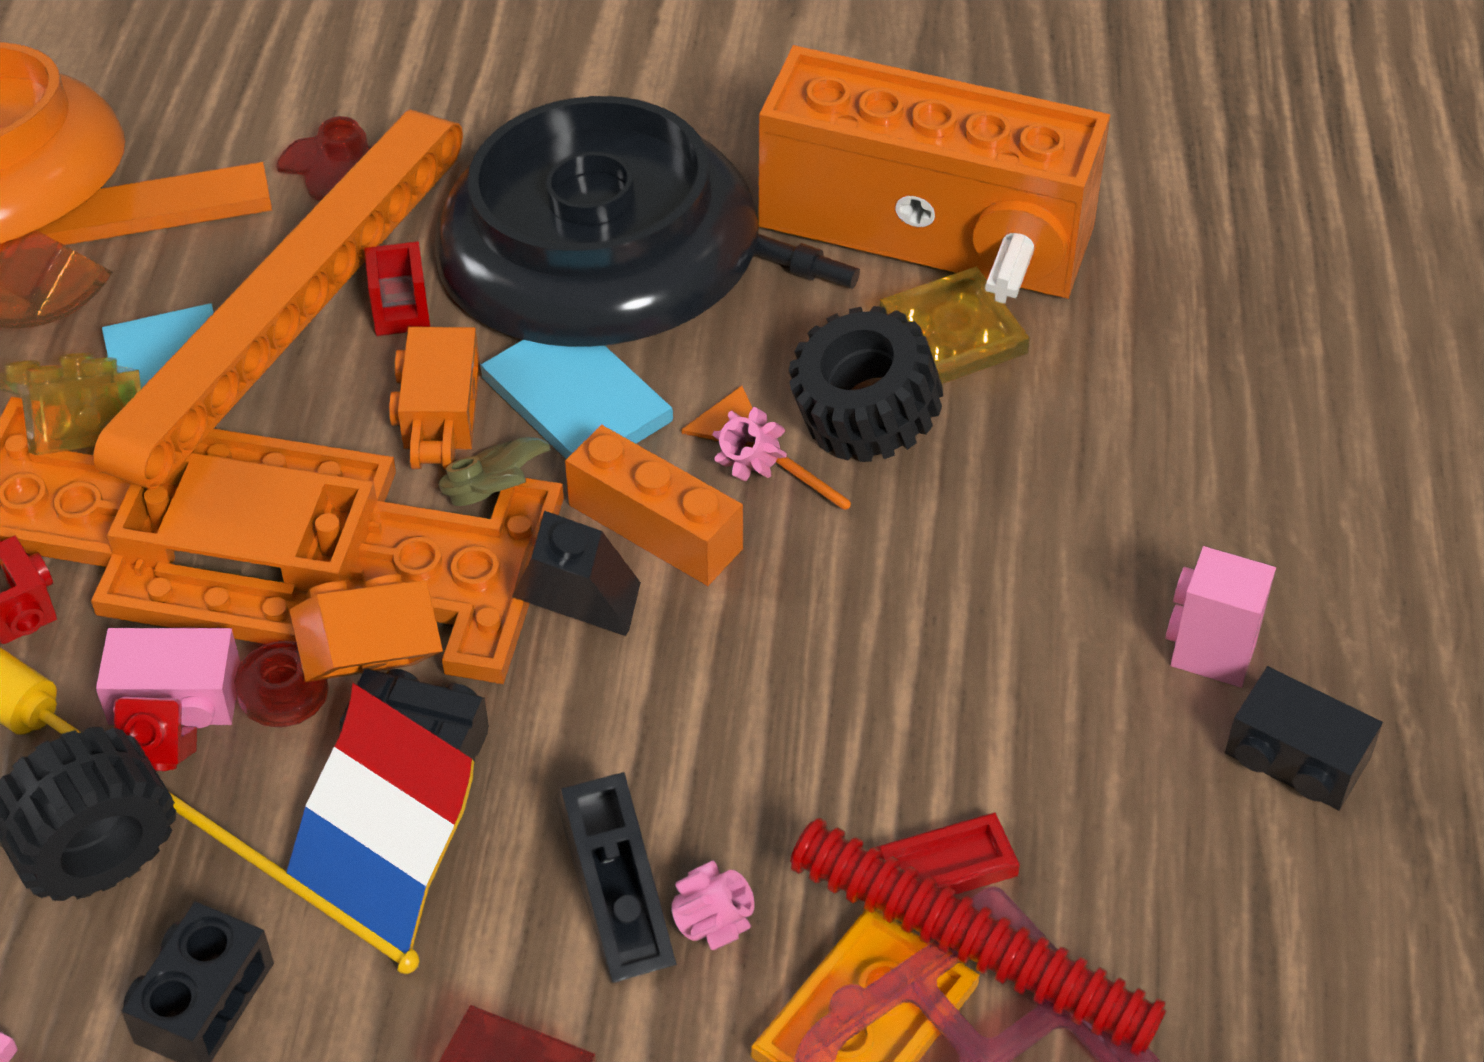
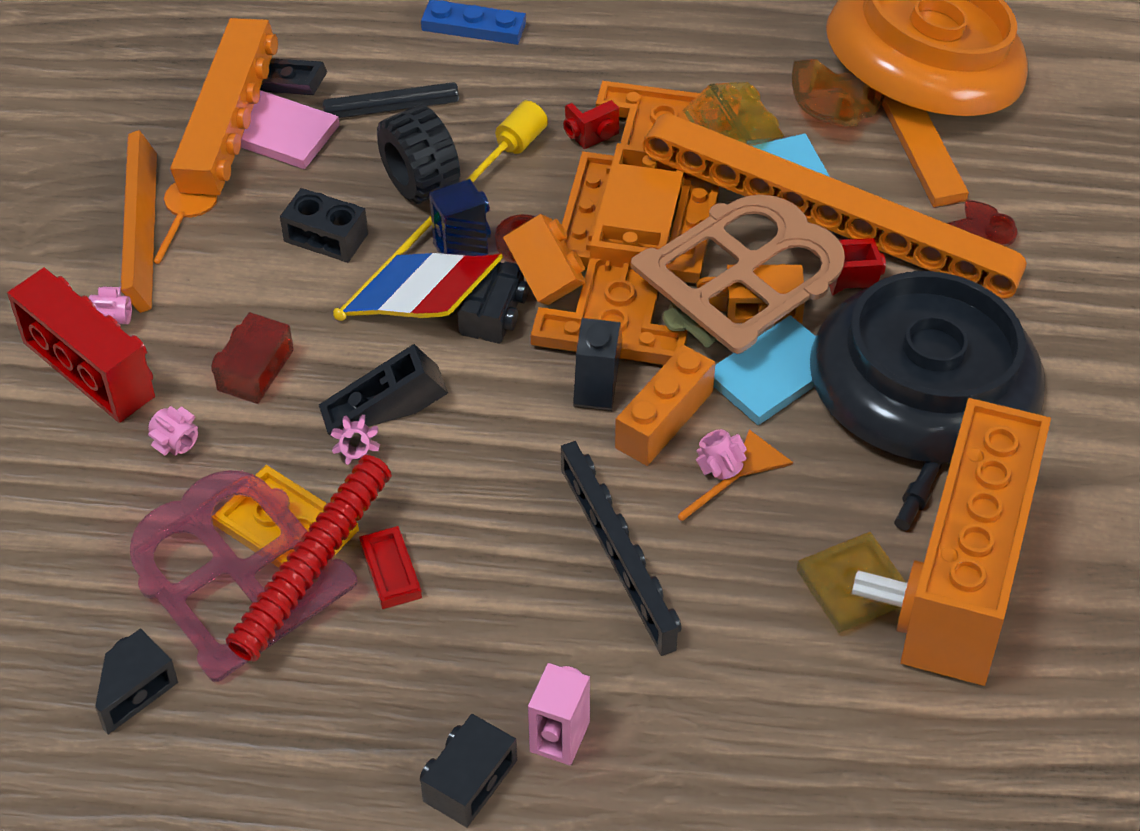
camera: 90 degrees right, 0 degrees up
(157, 729) = (479, 173): red bracket -> none
(175, 664) = (527, 184): bright pink brick -> none
(256, 755) = (460, 220): none -> clear blue brick
(359, 323) = (792, 233): none -> nougat window
(873, 417) = (773, 513): black tyre -> none
(906, 569) = (625, 557): none -> black plate

